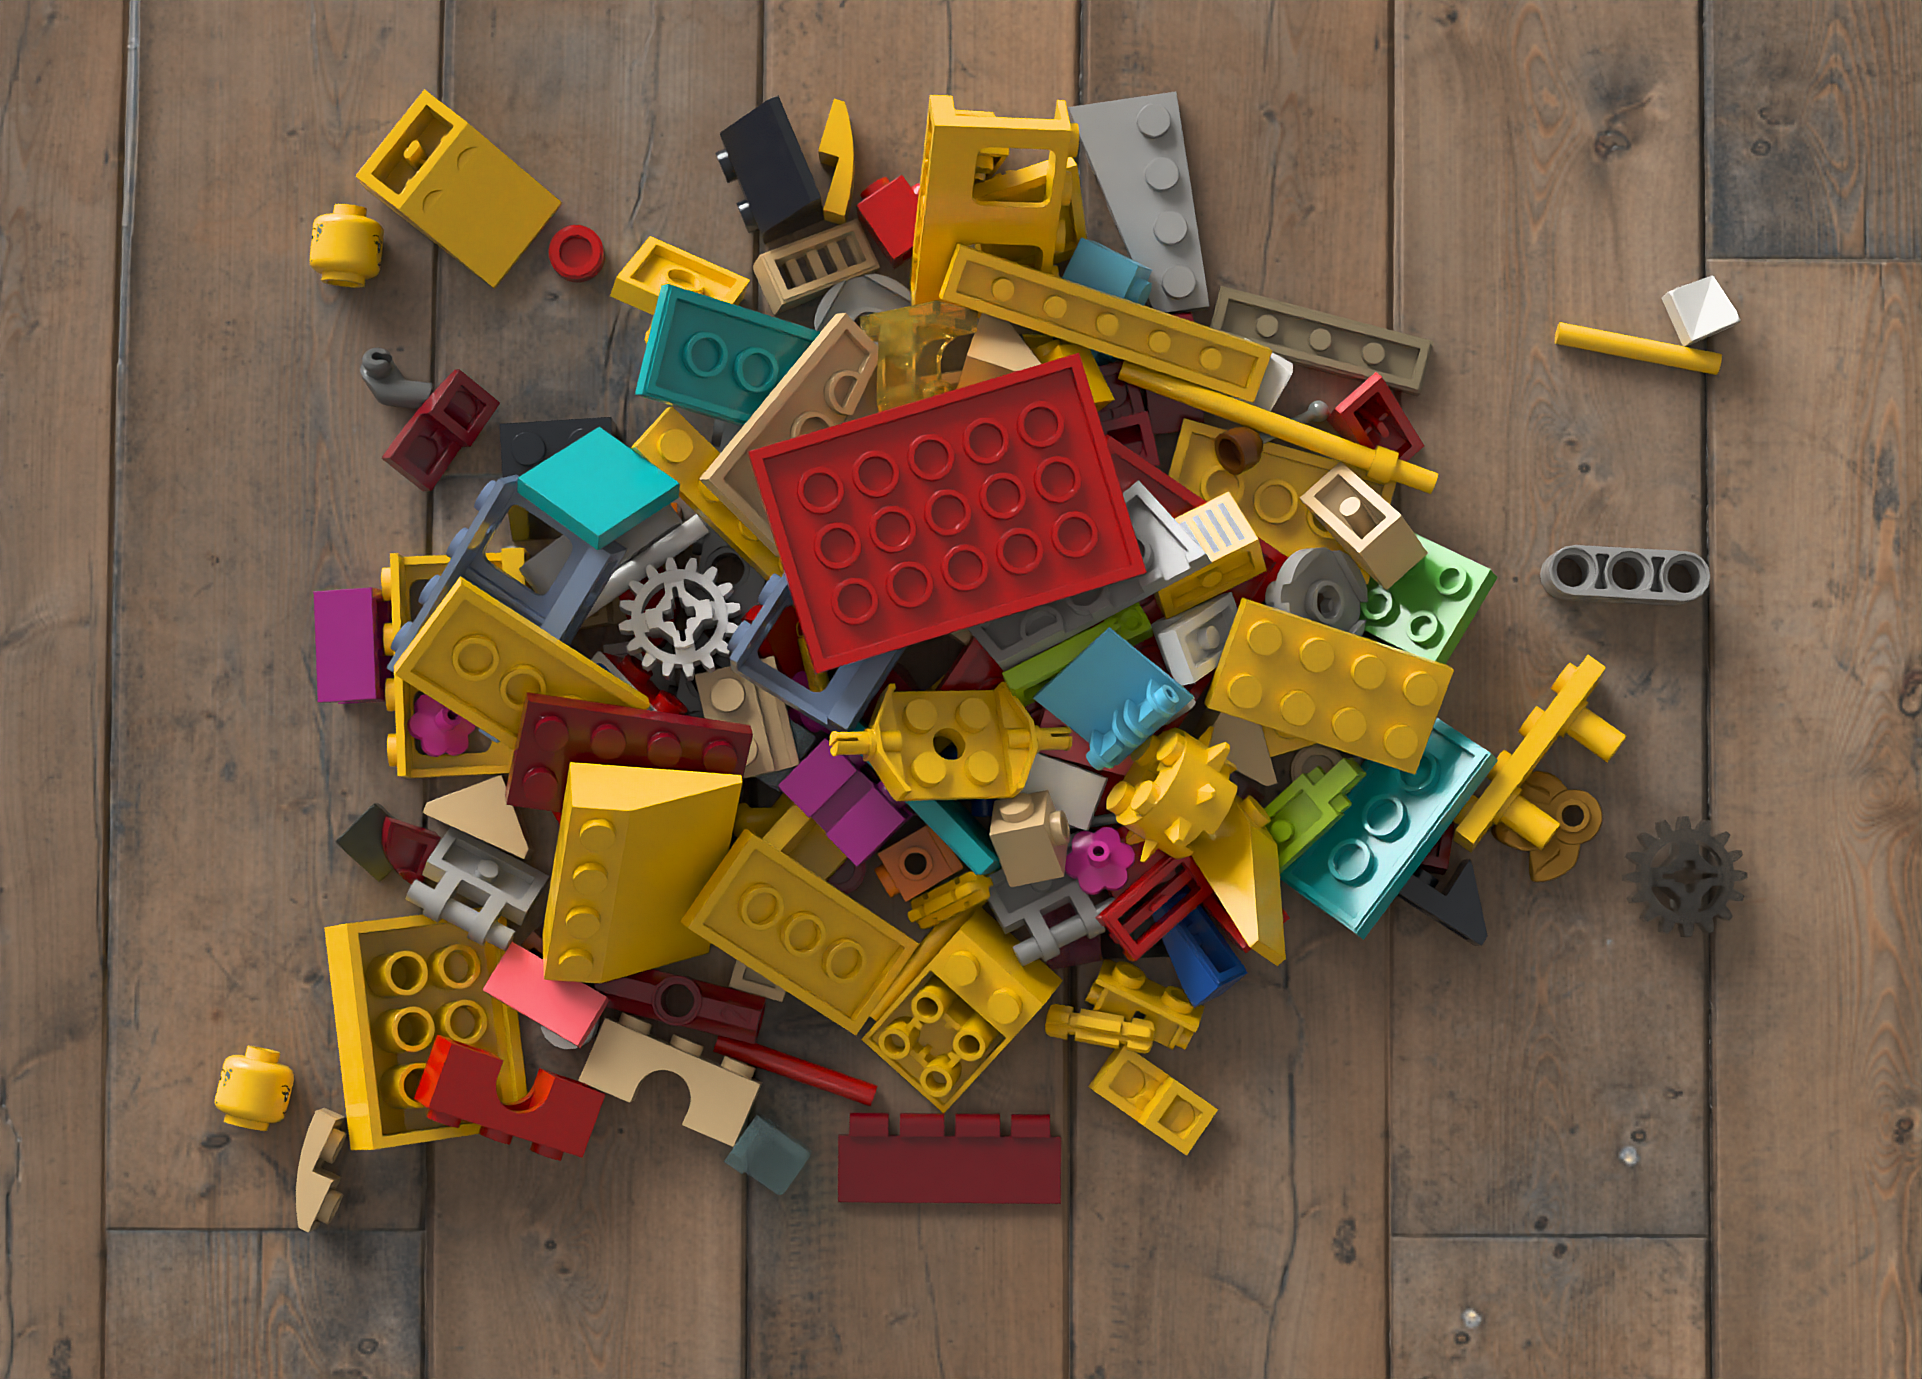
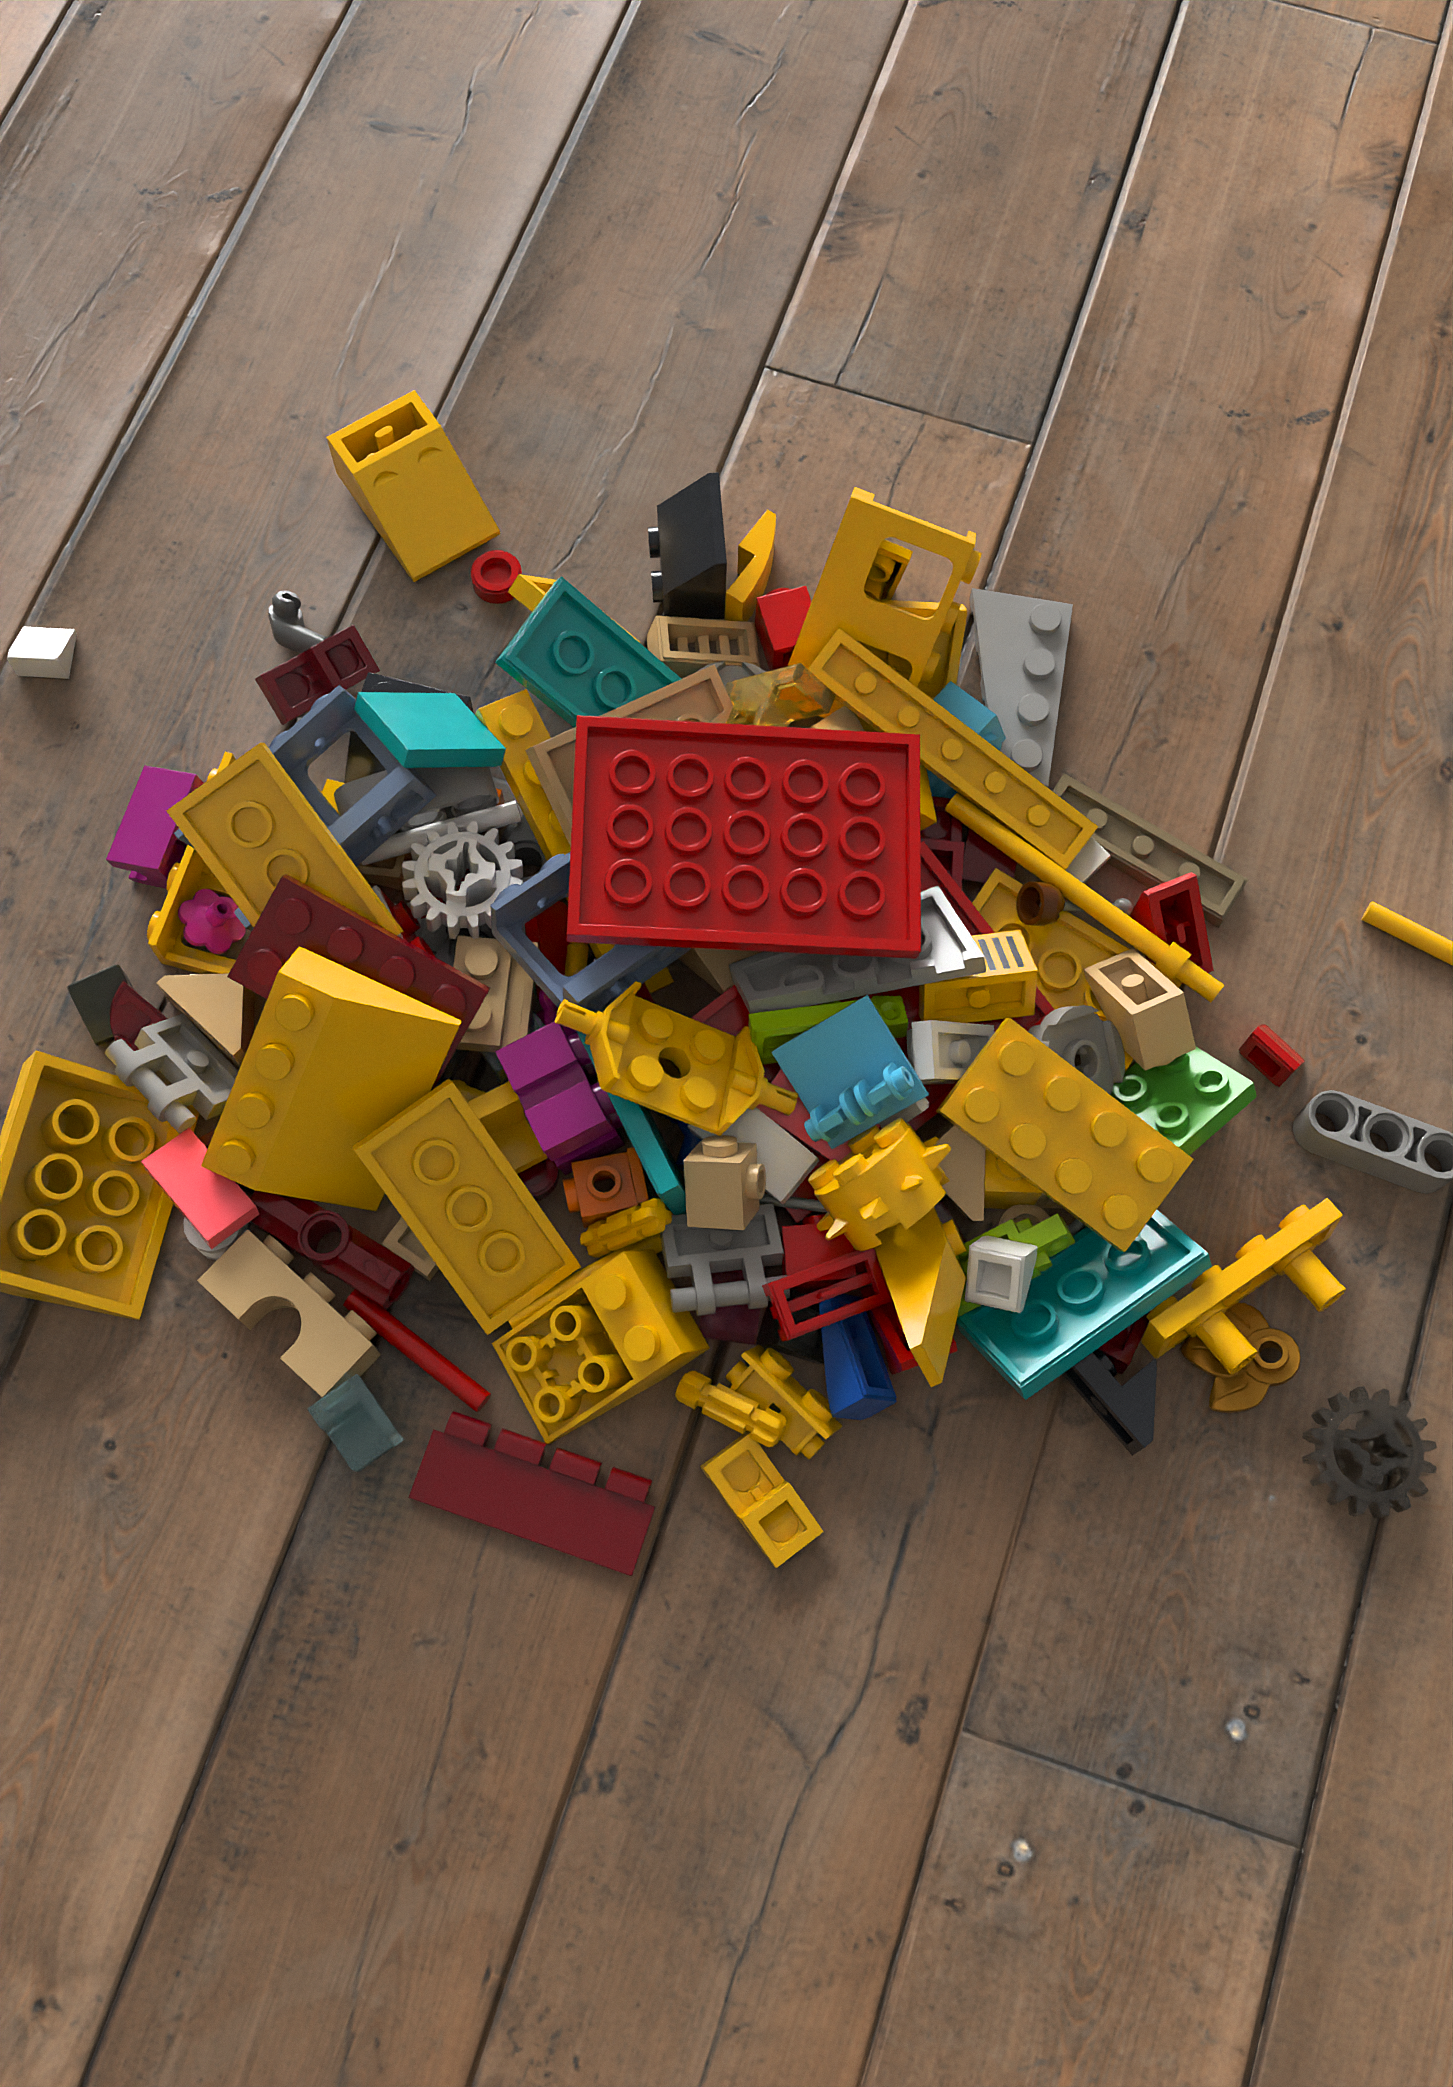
camera: 20 degrees right, 15 degrees down
(151, 493) = (43, 652): none -> white slope
(346, 246) = (299, 507): yellow head -> none
(553, 1115) = (78, 1245): red arch -> none
(1102, 871) = (784, 1235): dark pink plant -> none
(1306, 829) = (999, 1273): none -> white slope
(1503, 515) = (1271, 1055): none -> red slope

